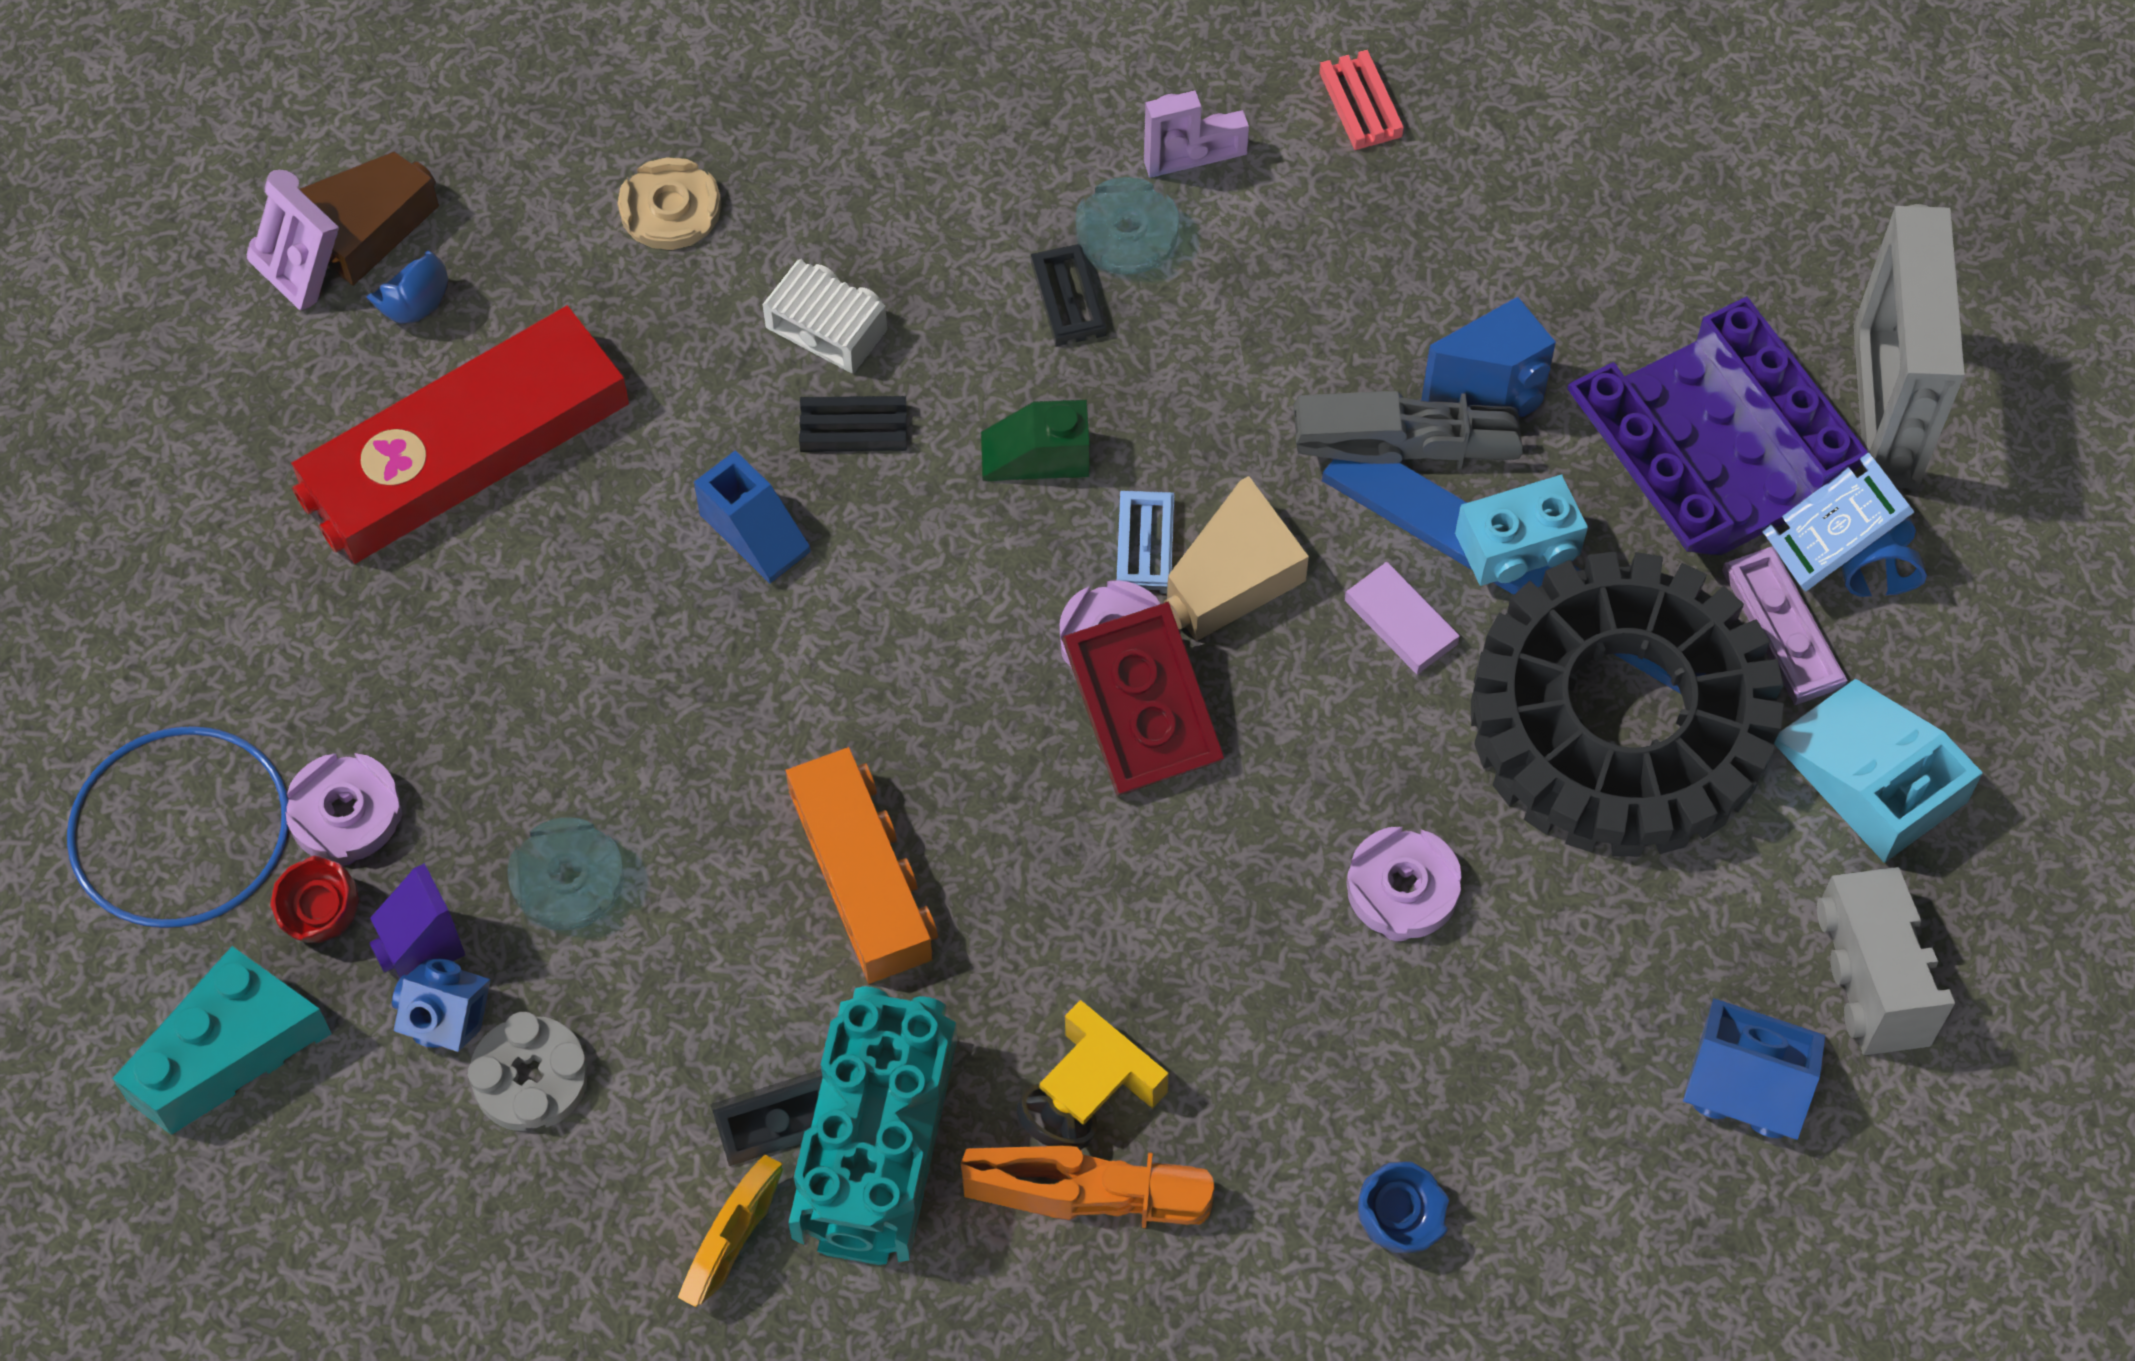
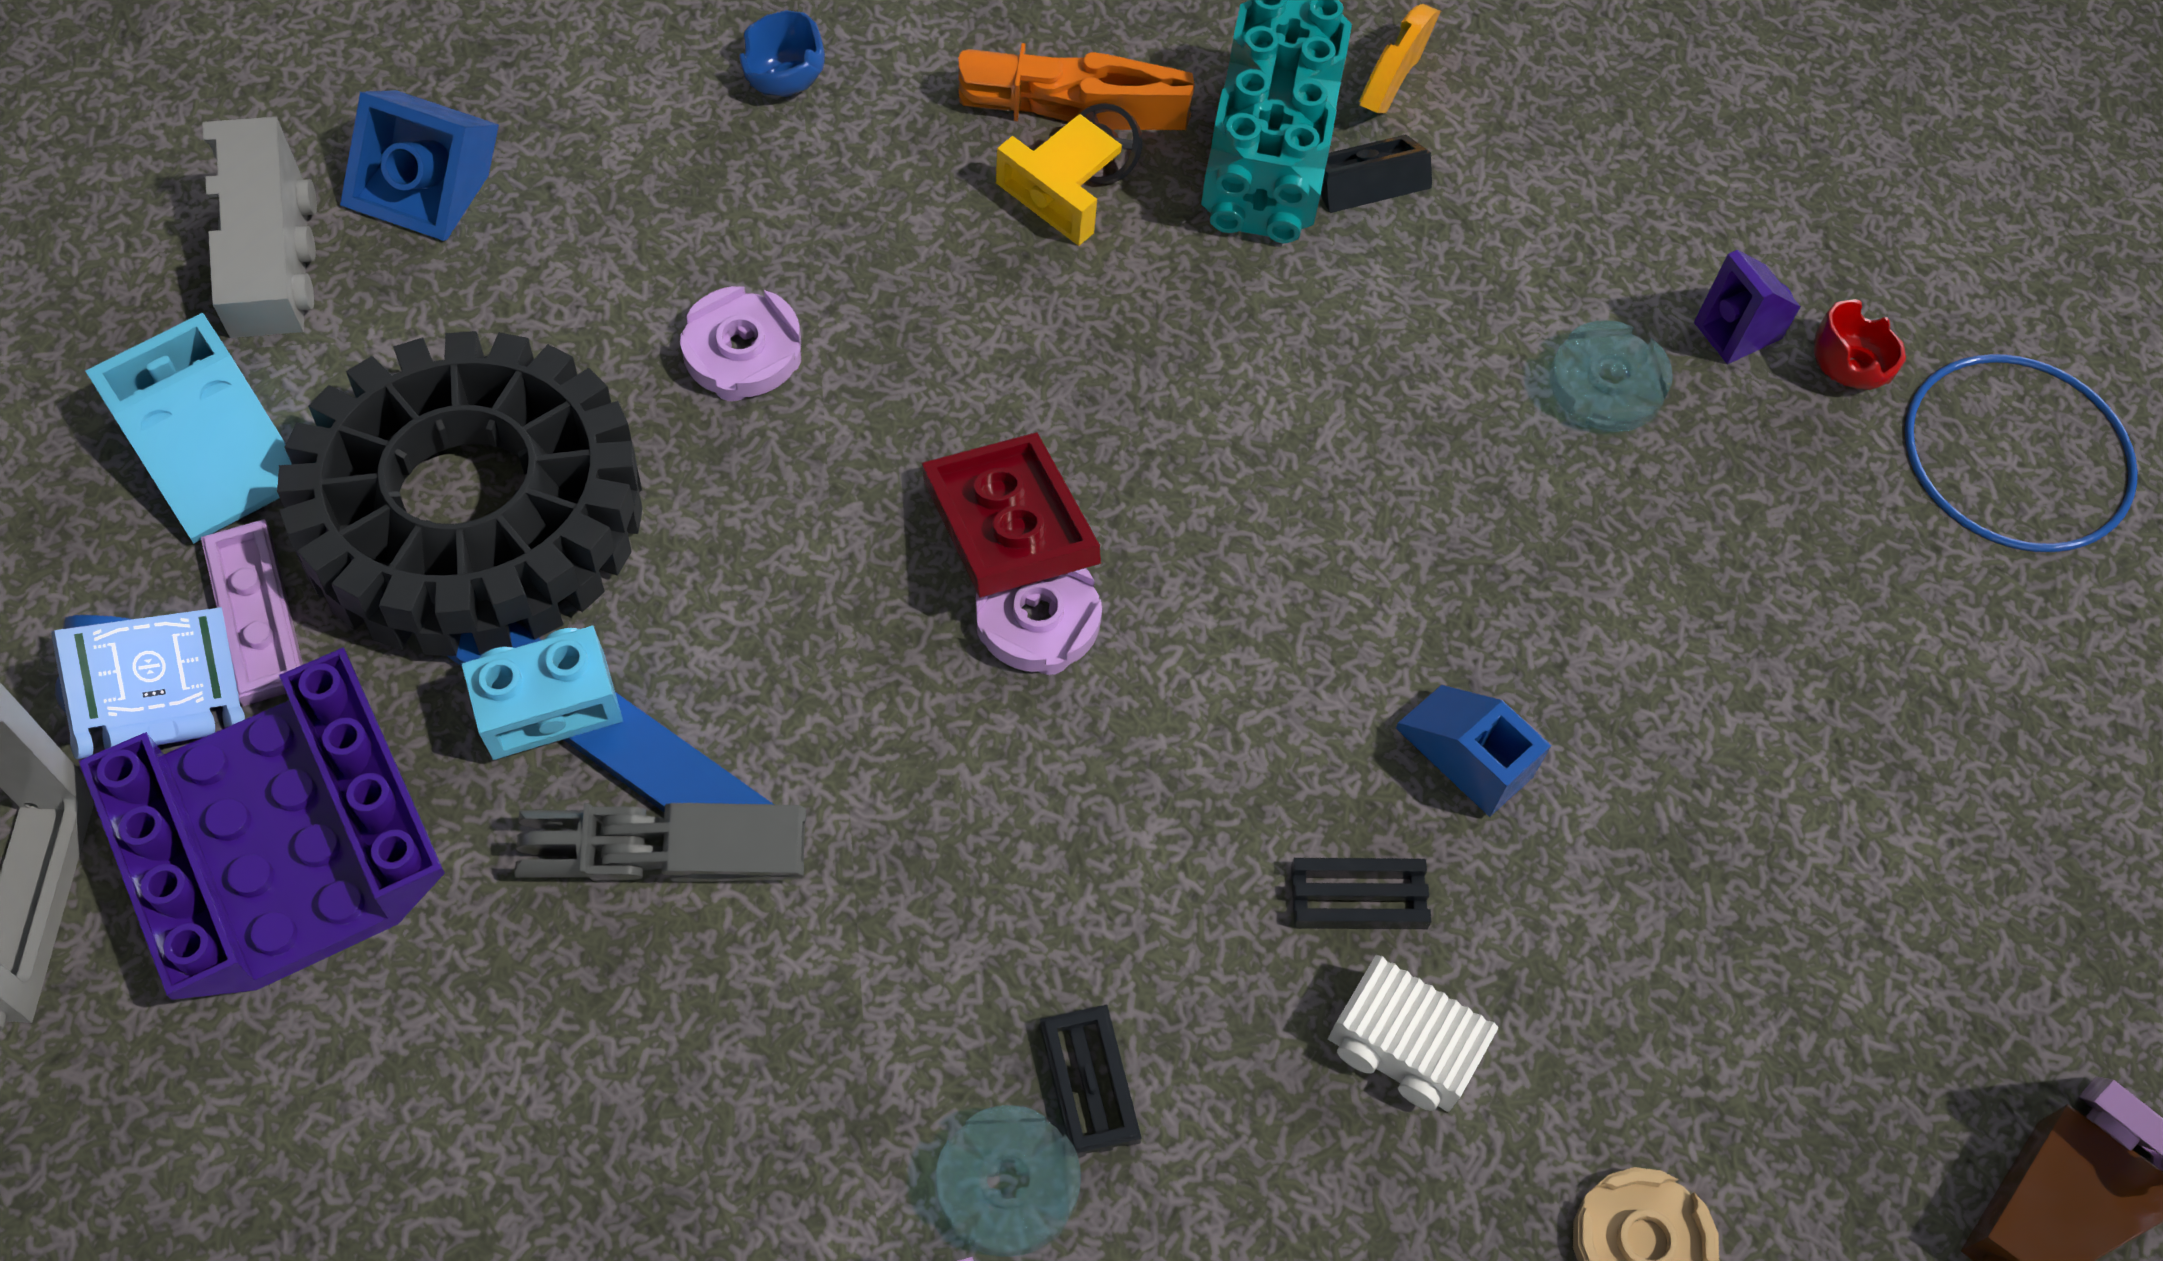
camera: 175 degrees right, 0 degrees up
(217, 1041) = (1905, 225): teal wedge -> none
(344, 778) = (1838, 471): lavender plate -> none
(413, 291) = (1966, 1080): blue hair -> none
(440, 1004) = (1693, 232): blue brick -> none
(458, 435) = (1840, 874): red brick -> none
(533, 1104) = (1612, 182): light grey plate -> none
(860, 865) = (1310, 369): orange brick -> none
(1038, 443) = (1128, 842): dark green slope -> none
(1146, 500) = (995, 780): light blue tile -> none
(1235, 564) = (894, 680): tan slope -> none
(1402, 618) = (702, 629): lavender tile -> none
(1493, 361) = (539, 904): blue slope -> none

